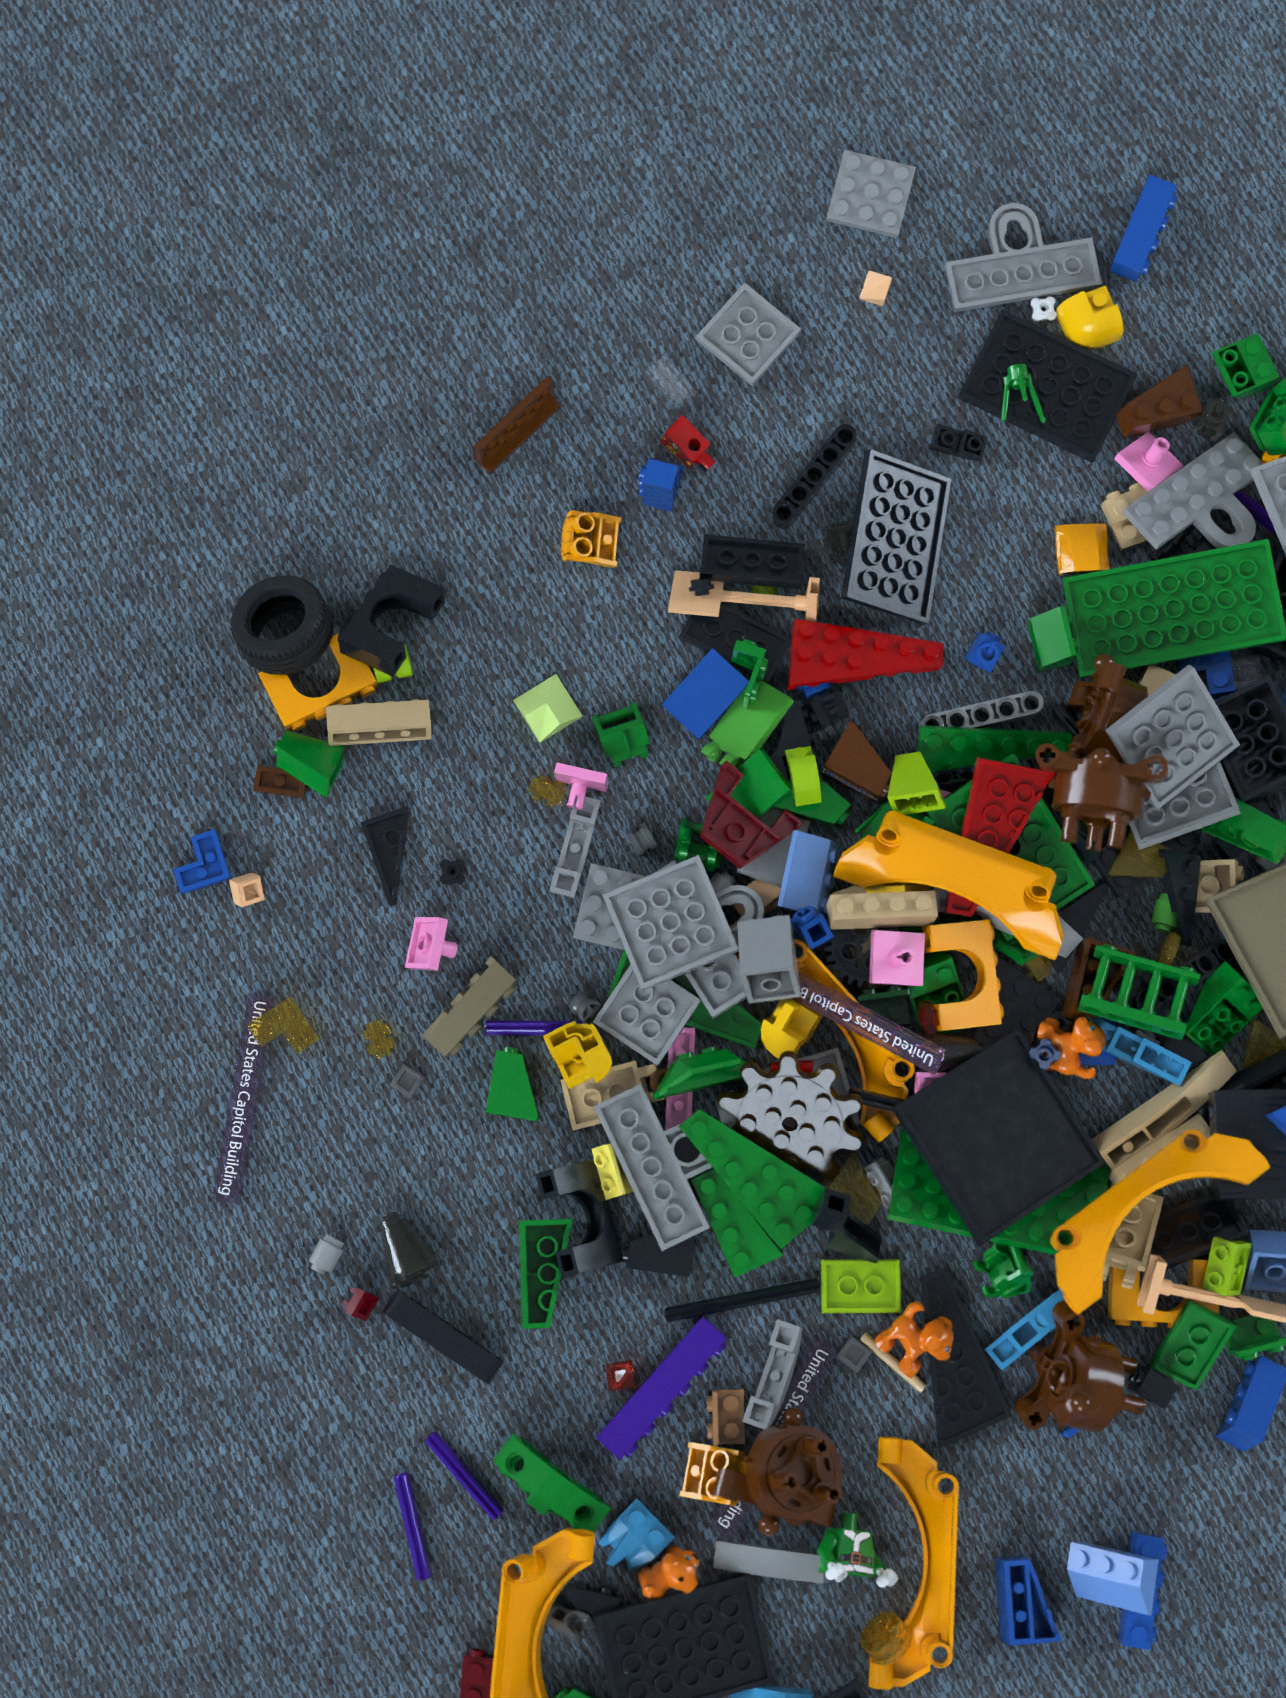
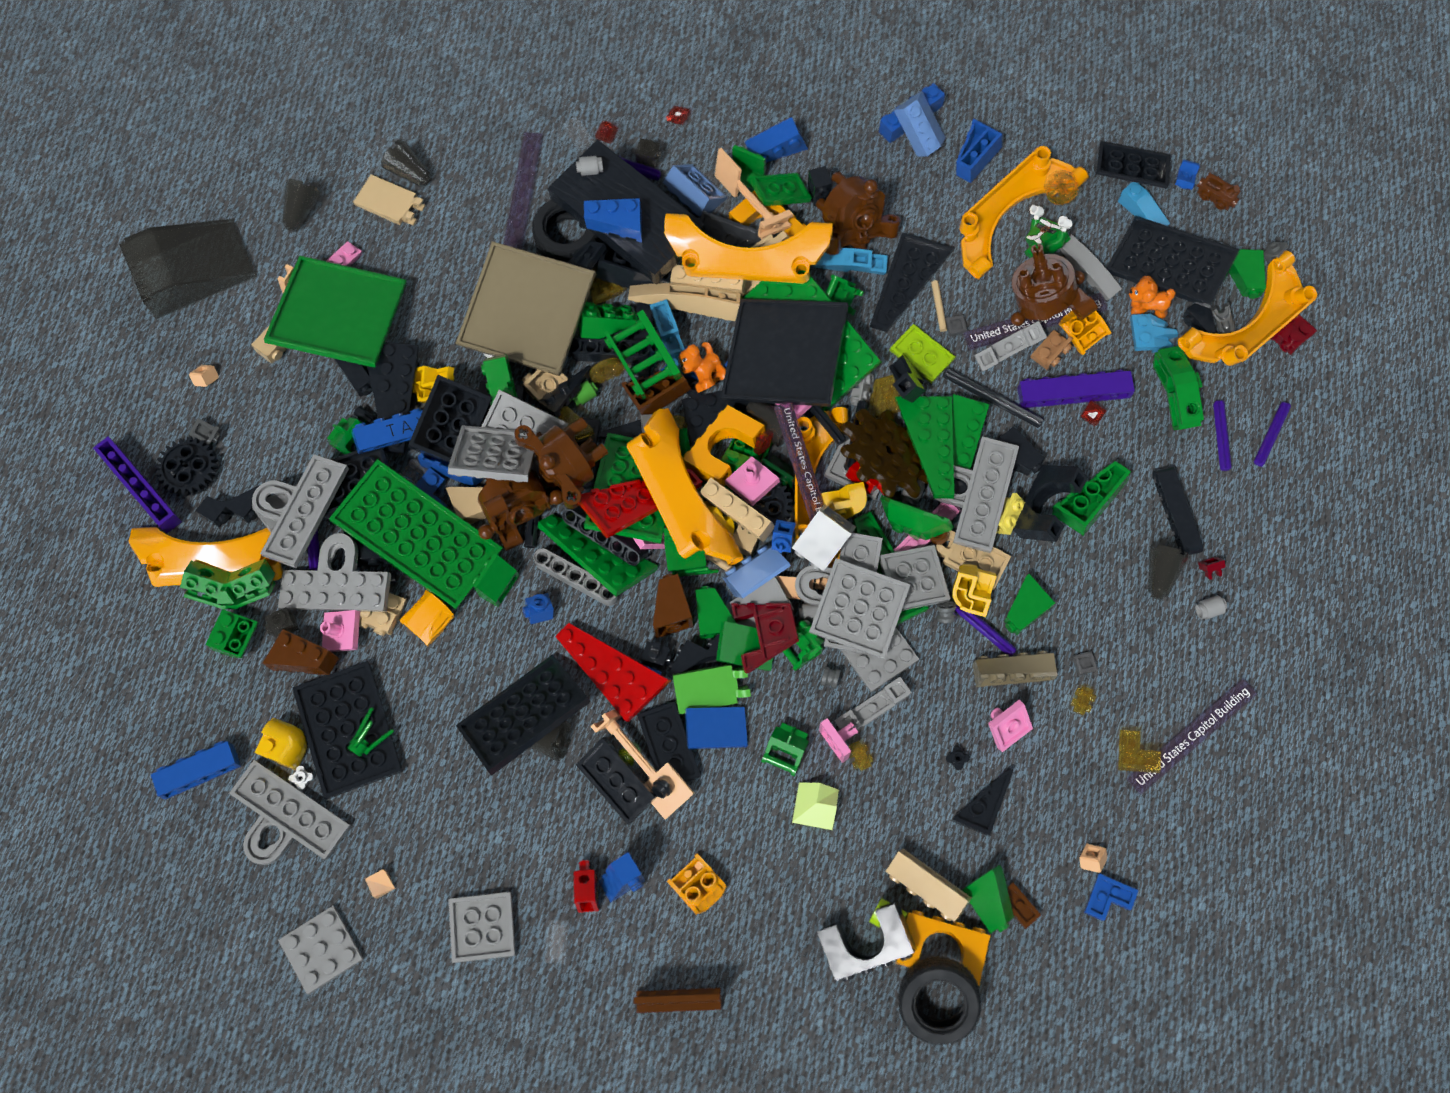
camera: 140 degrees left, 10 degrees down
(753, 658) = (676, 706): green bracket -> none
(804, 776) = (706, 624): lime brick -> none
(816, 465) = (522, 795): black beam -> none
(913, 786) = (654, 560): lime slope -> none
(933, 1338) = (909, 292): orange animal -> none
(958, 443) = (429, 744): black slope -> none
(1045, 1046) = (719, 371): dark blue plate -> none
(1226, 1266) = (729, 205): lime bracket -> none

